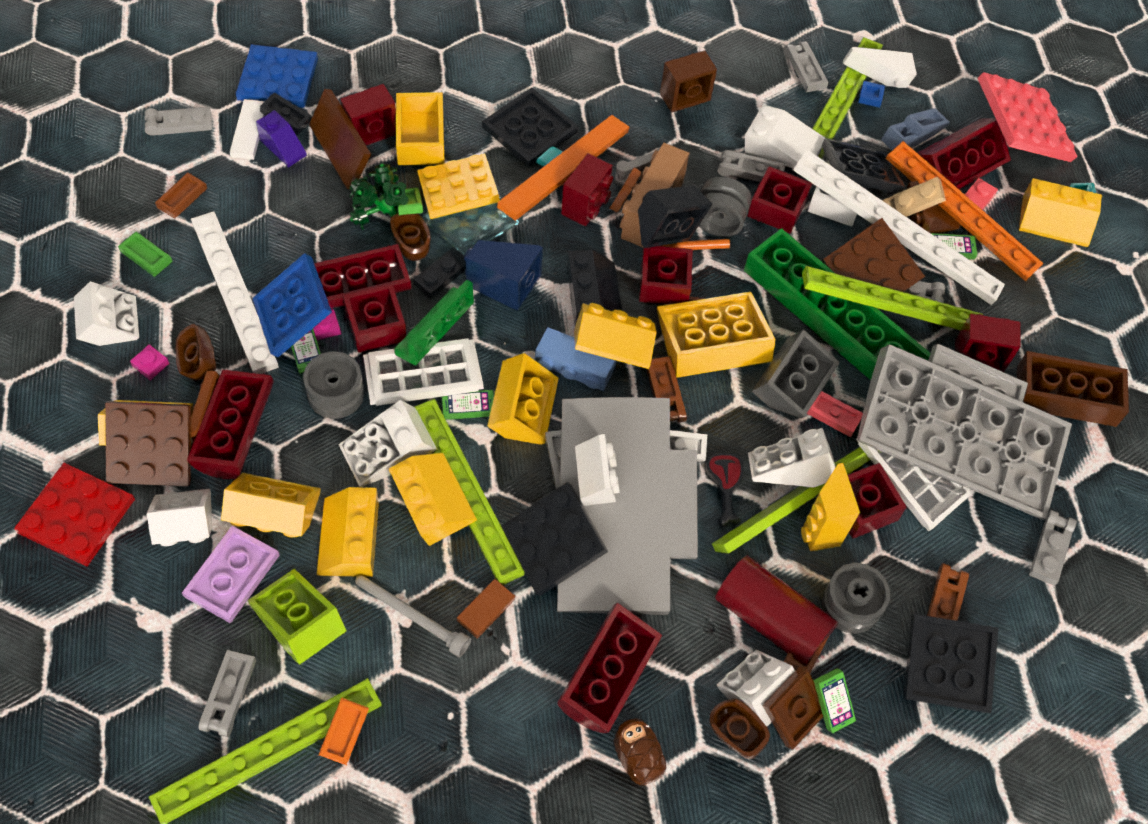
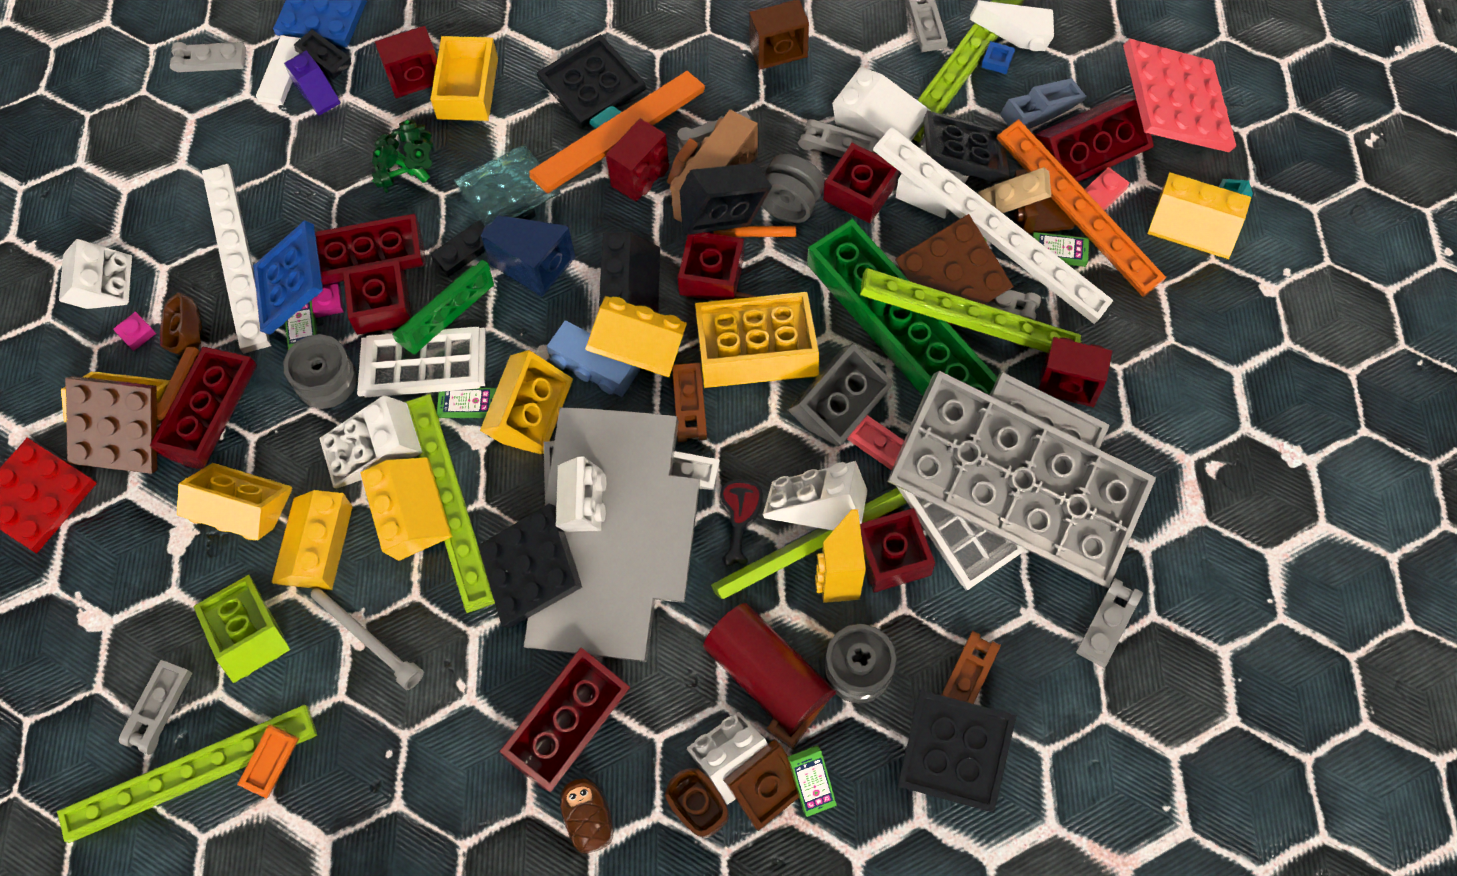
camera: 15 degrees right, 5 degrees up
(145, 254) = (149, 208): bright green tile -> none
(180, 517) = (136, 507): white slope -> none
(181, 195) = (197, 143): dark orange tile -> none
(230, 574) = (180, 575): lavender plate -> none
(339, 138) = (373, 85): reddish brown tile -> none
(411, 235) = (433, 203): reddish brown piece -> none
(414, 204) = (442, 163): bright green tile -> none
(458, 186) = (495, 148): yellow plate -> none
(486, 608) = (446, 637): dark orange tile -> none
(1075, 388) = (1169, 434): reddish brown brick -> none

